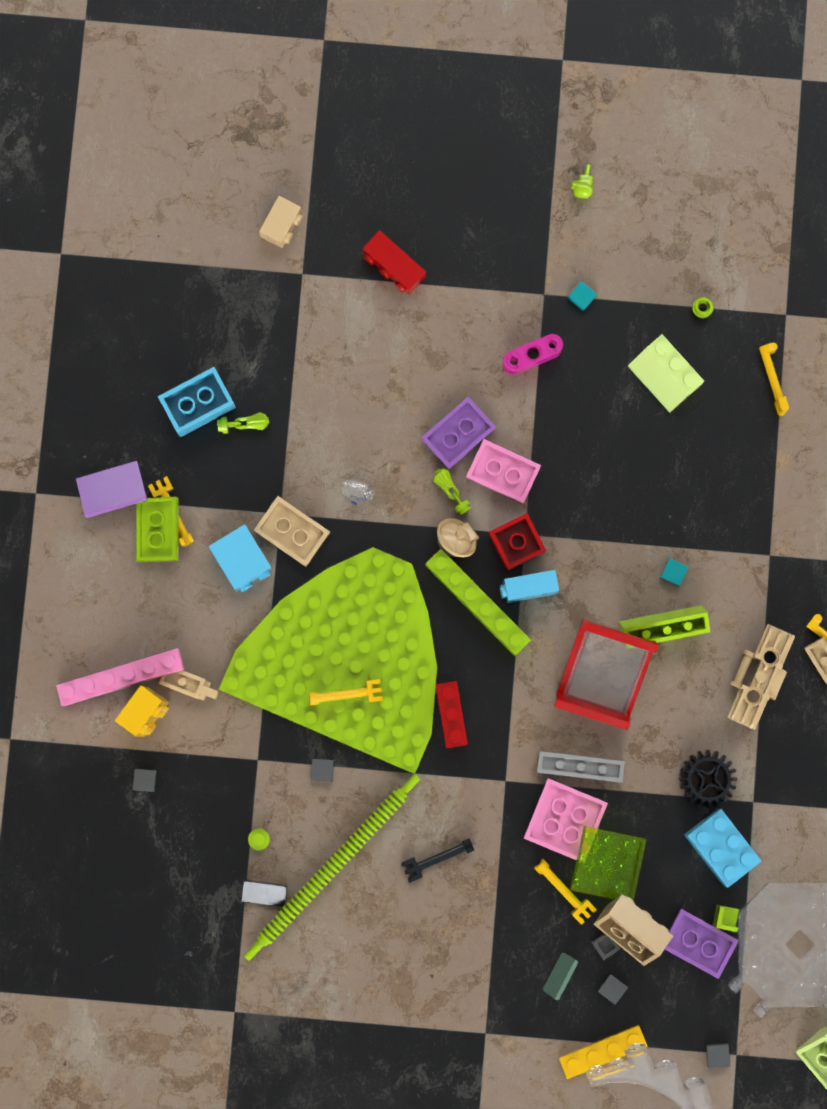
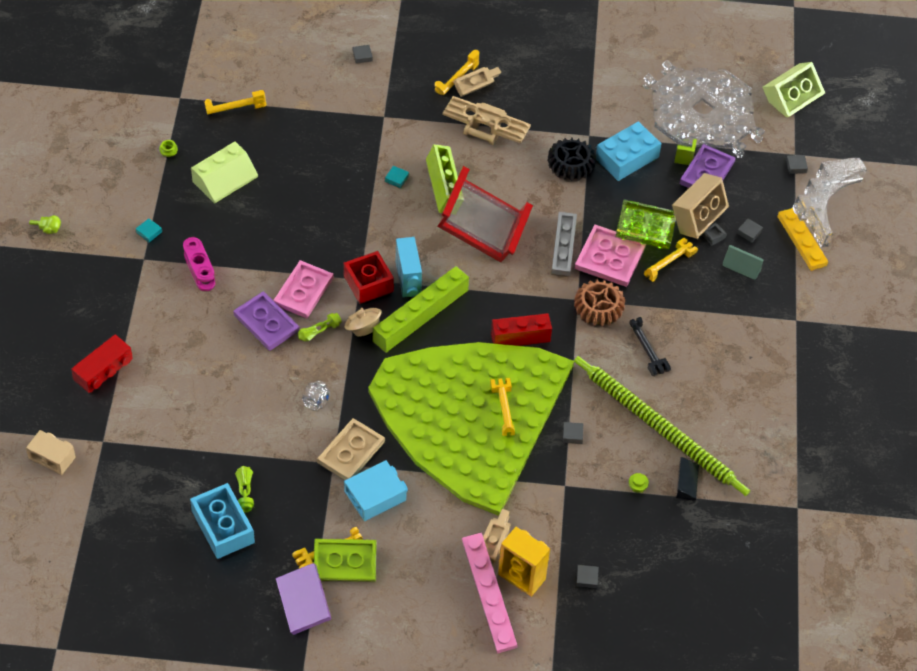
camera: 90 degrees left, 30 degrees down
(511, 814) = (595, 303): none -> nougat gear

